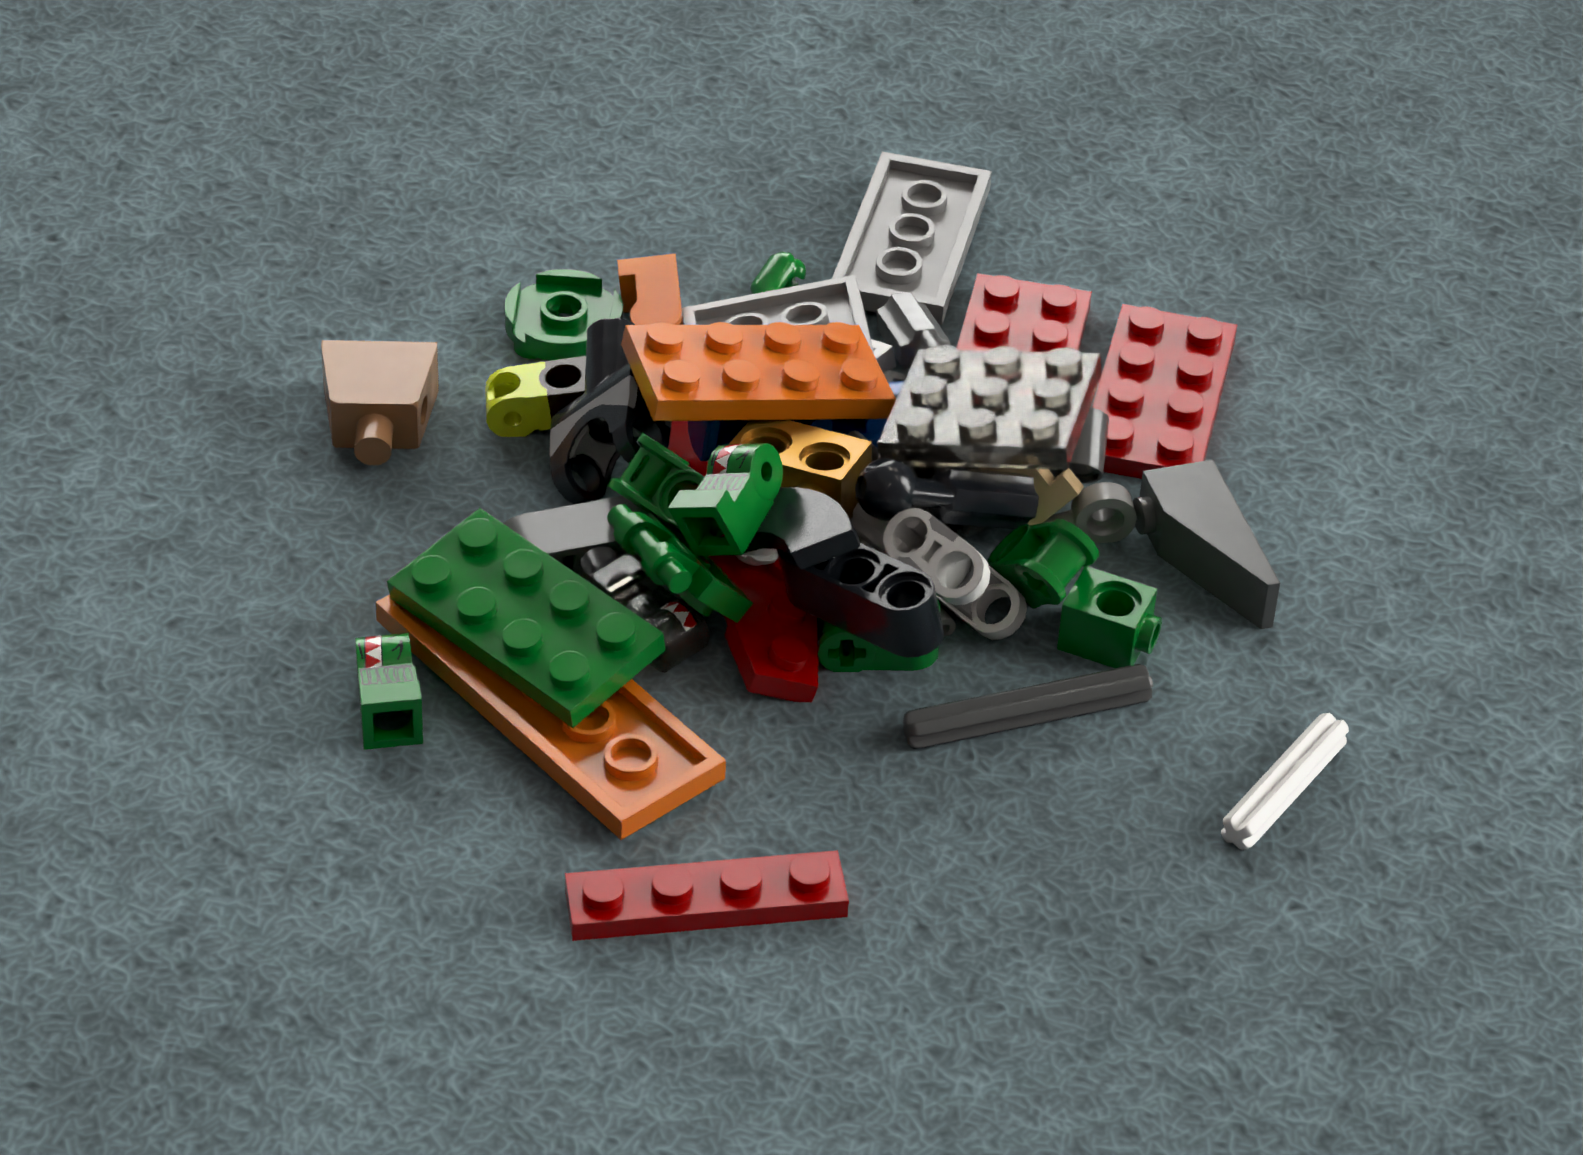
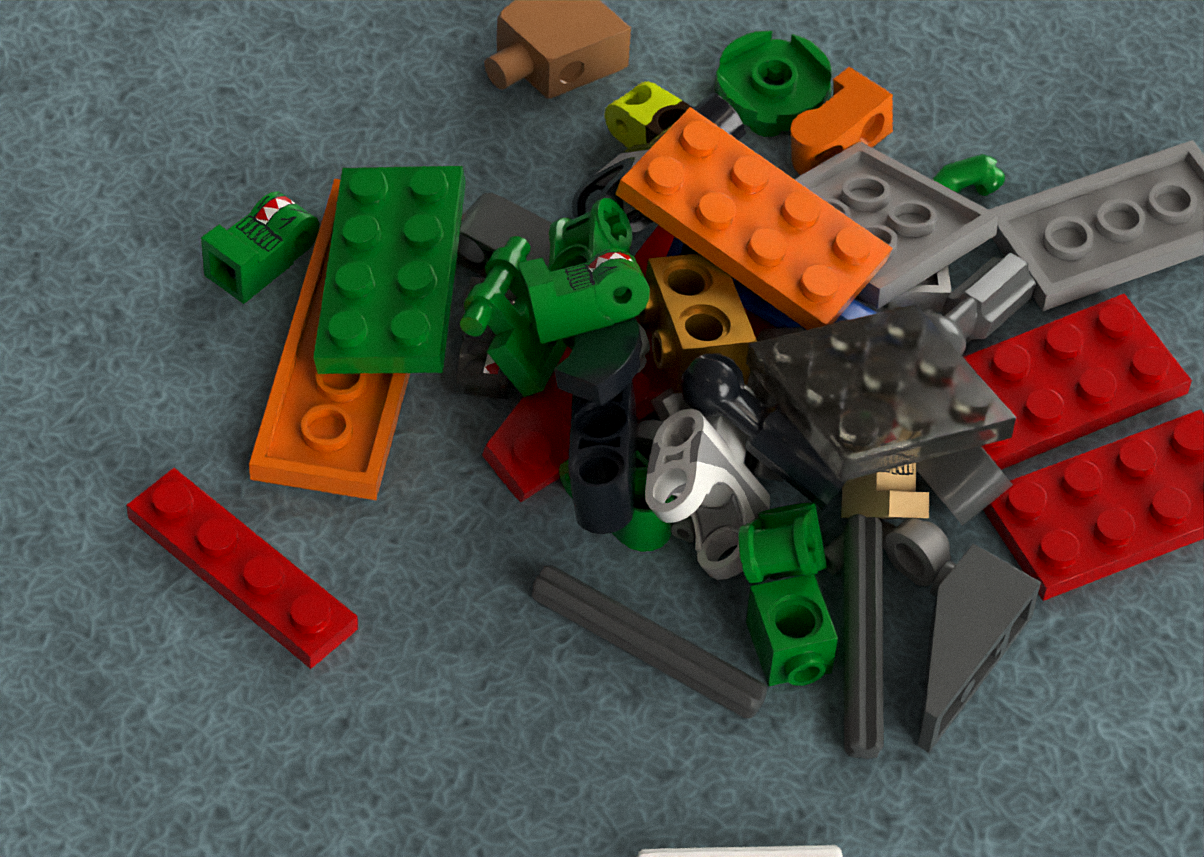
camera: 50 degrees right, 10 degrees up
(1173, 602) = (863, 637): none -> dark grey axle

